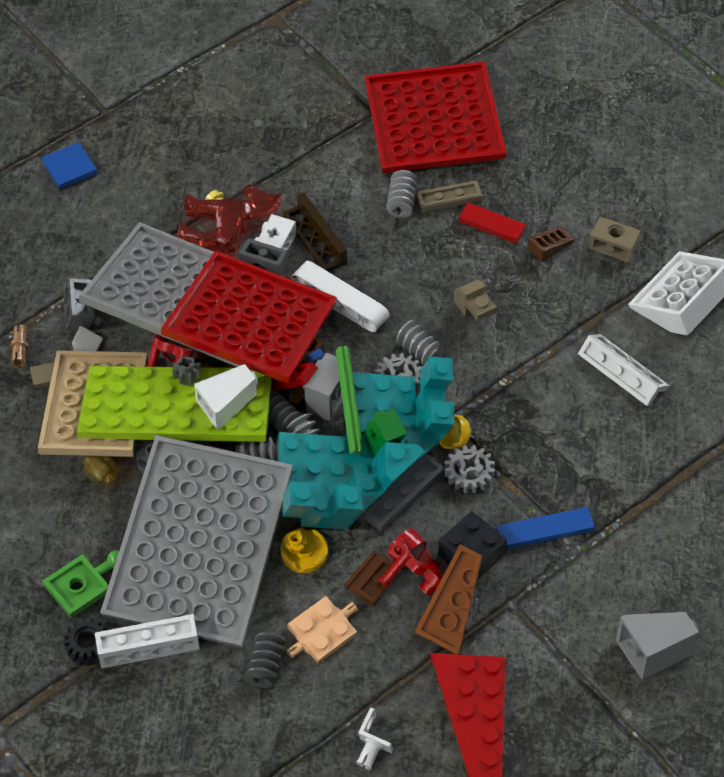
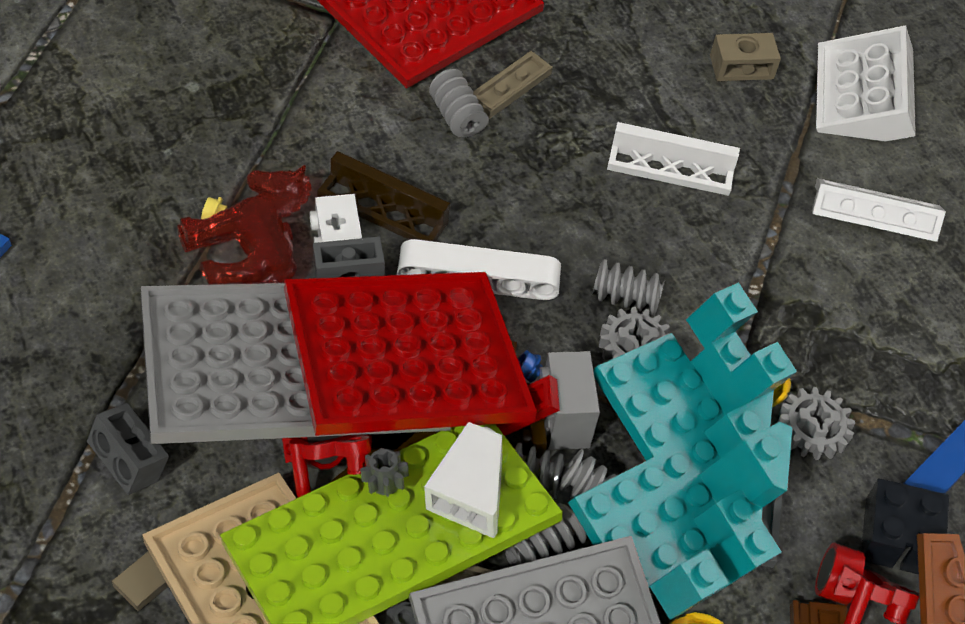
camera: 40 degrees left, 0 degrees up
(19, 346) = (72, 556): medium nougat pin -> none
(86, 340) = (173, 499): white slope -> none
(349, 400) = (630, 405): bright green axle -> none
(384, 428) = (711, 427): green brick -> none
(474, 300) = (651, 195): dark tan brick -> none
(492, 223) = (587, 95): red tile -> none
(516, 277) = (673, 153): none -> white fence
(542, 253) = (673, 92): reddish brown slope -> none

